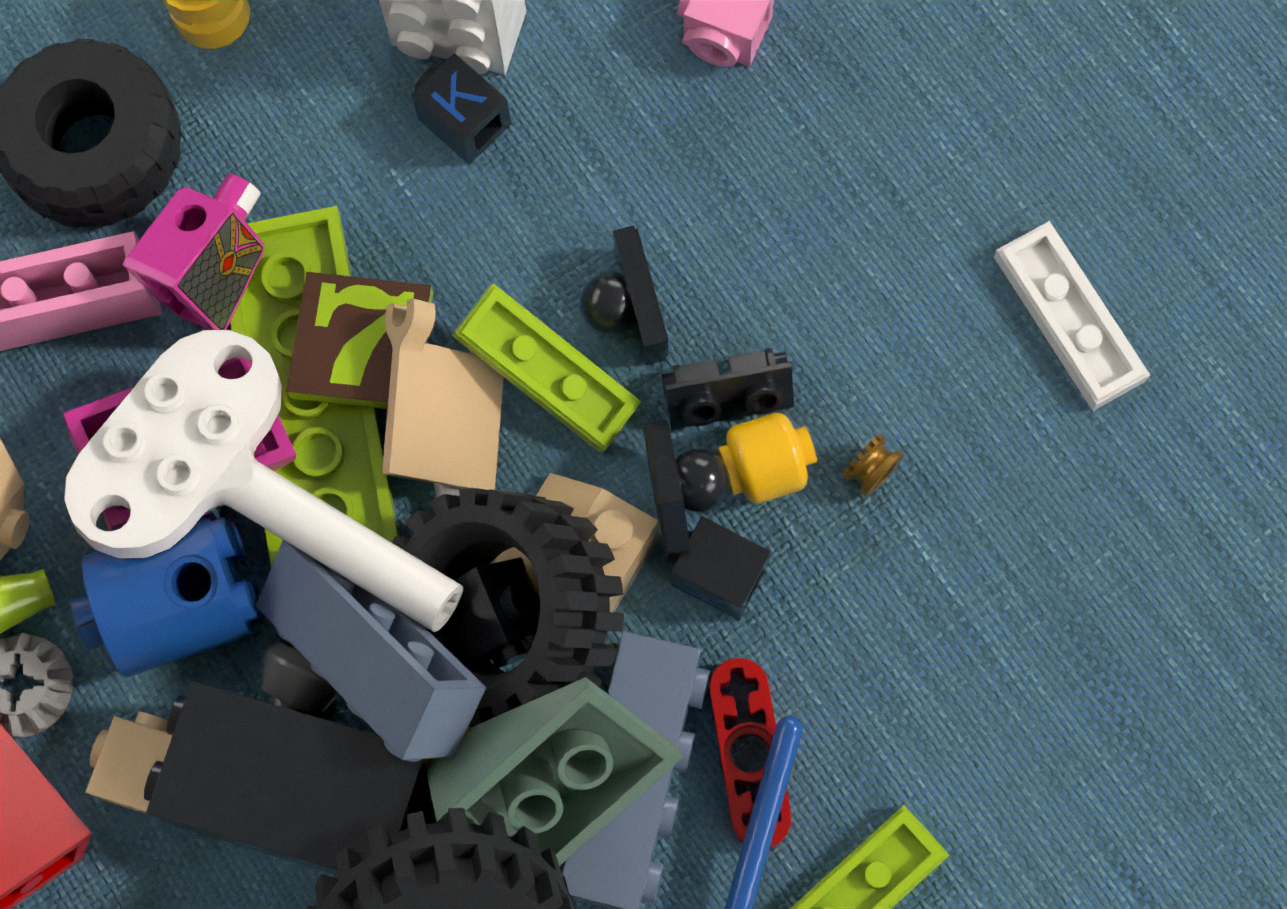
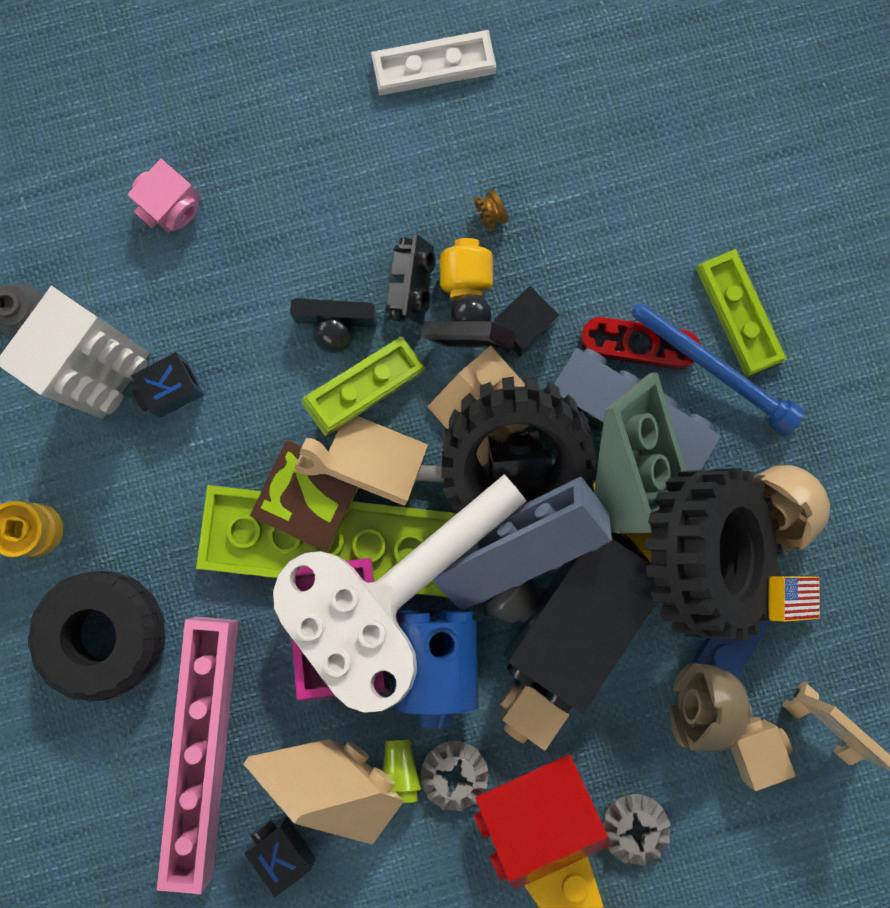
camera: 75 degrees left, 10 degrees up
(200, 253) = (215, 578): dark pink torso -> none

